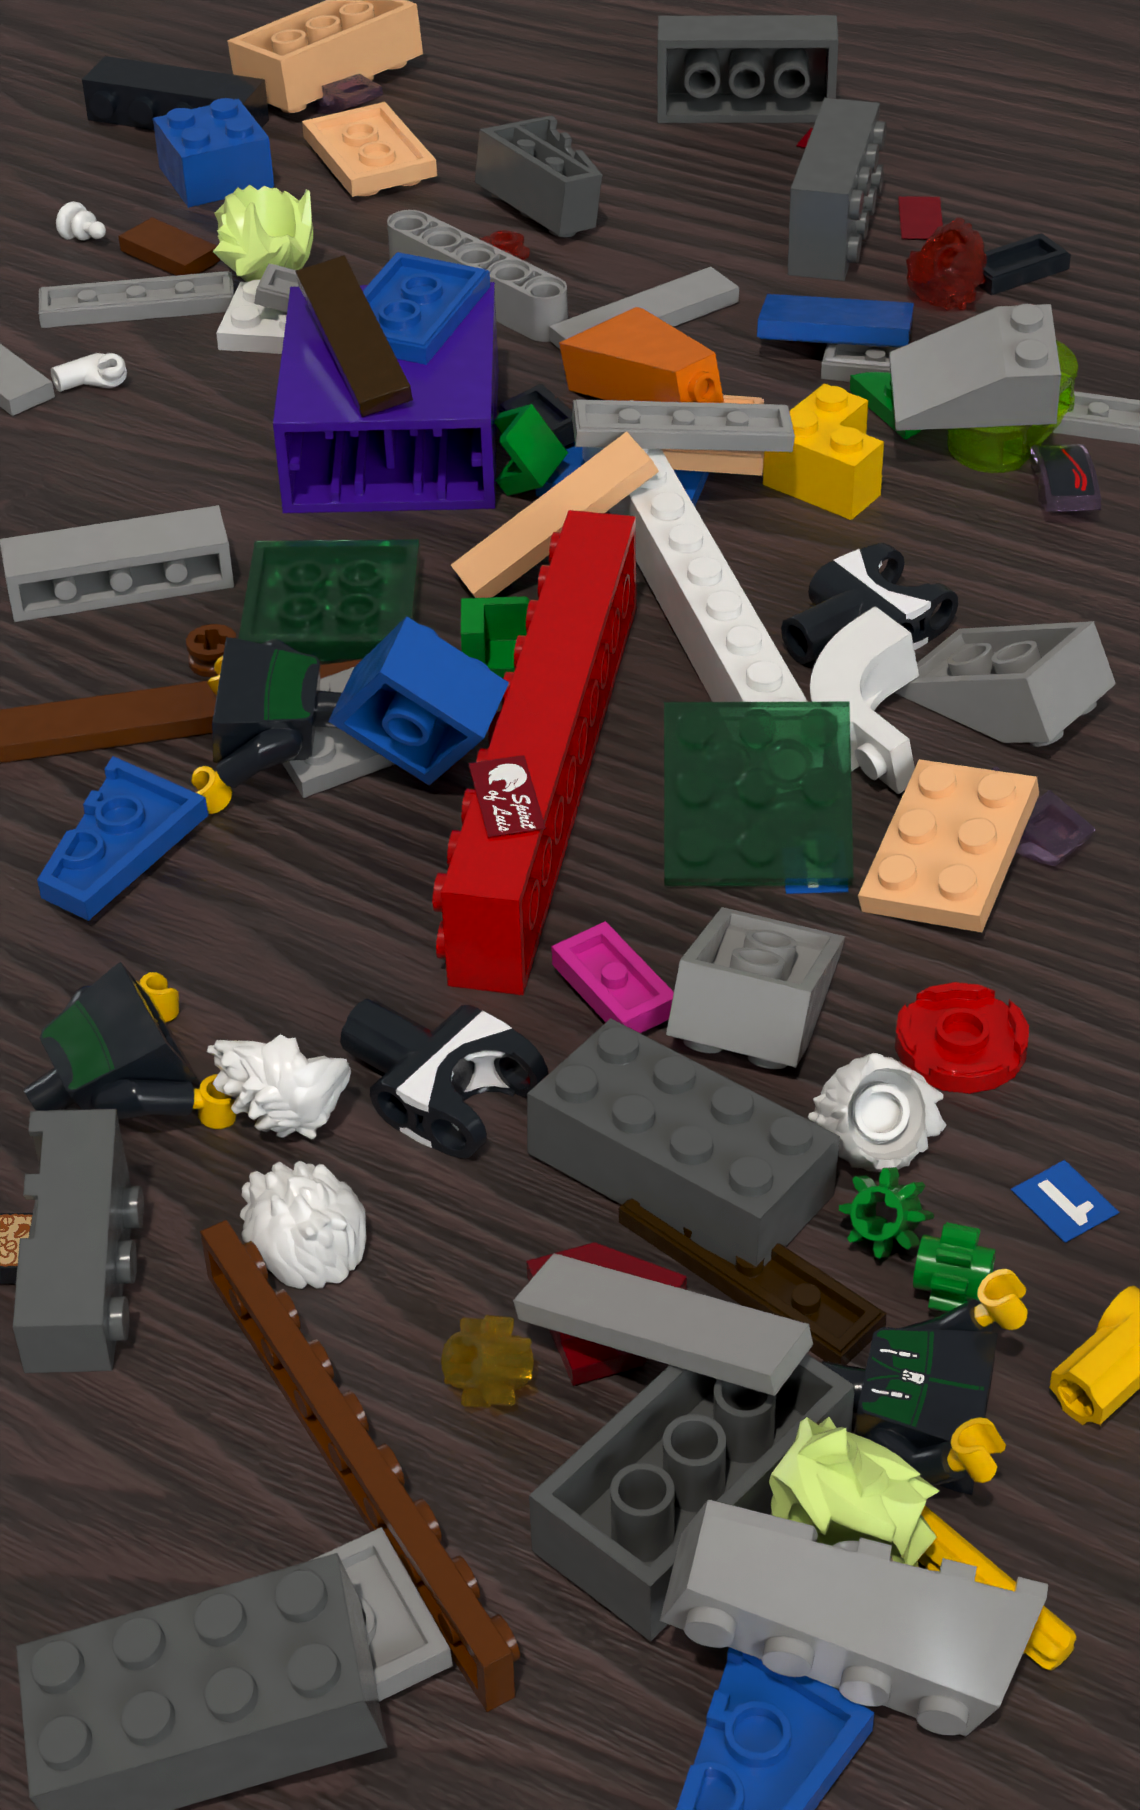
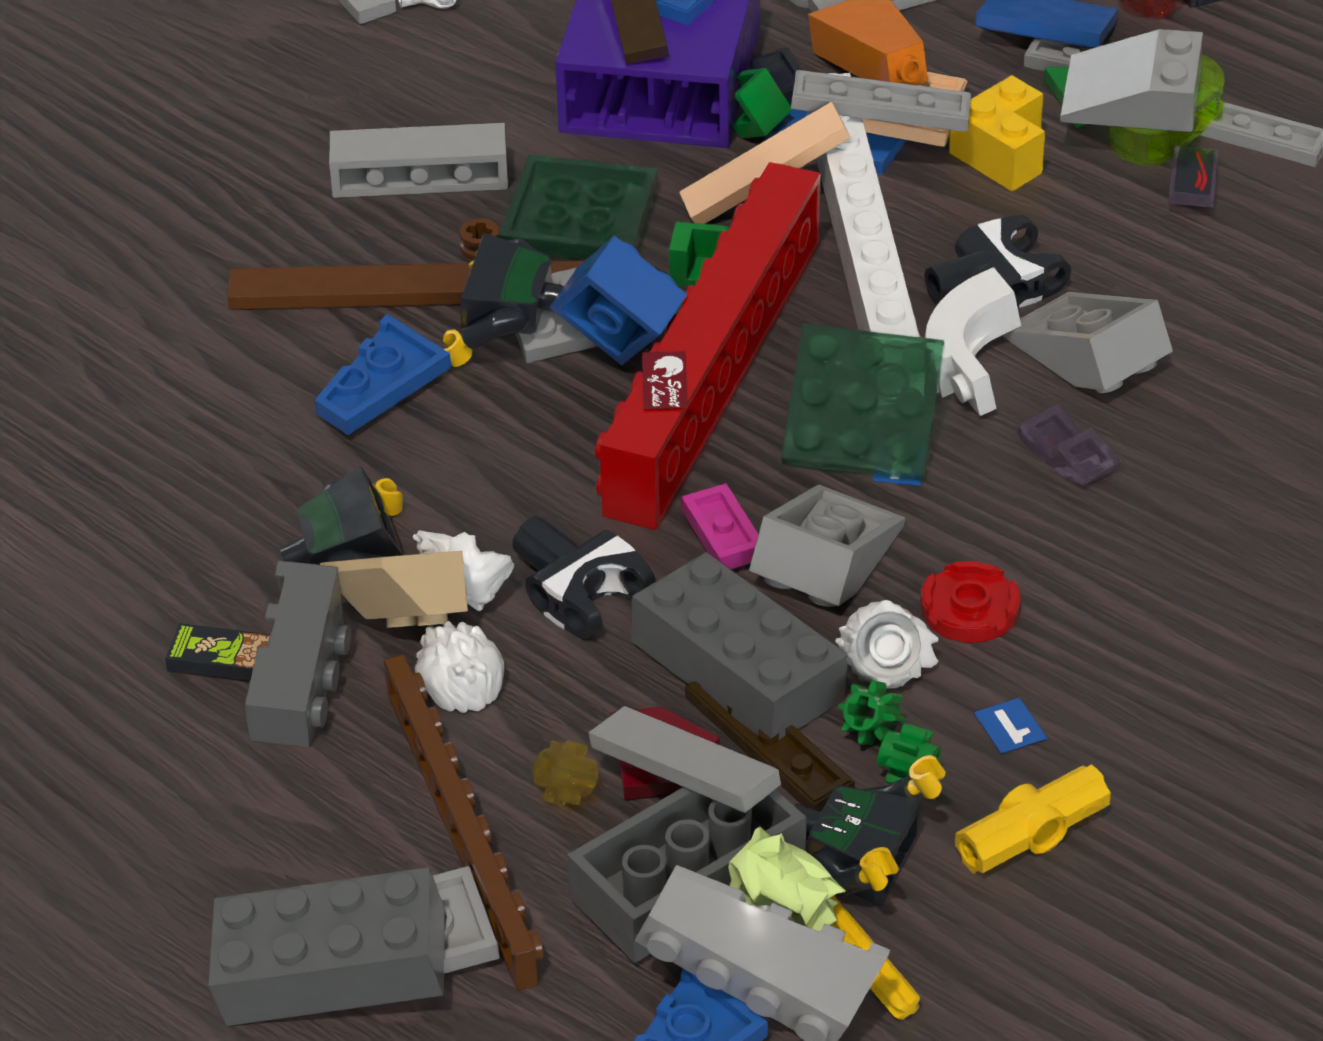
camera: 10 degrees right, 0 degrees up
(212, 1122) = (405, 587): none -> tan slope
(949, 845) = (1001, 459): light nougat plate -> none

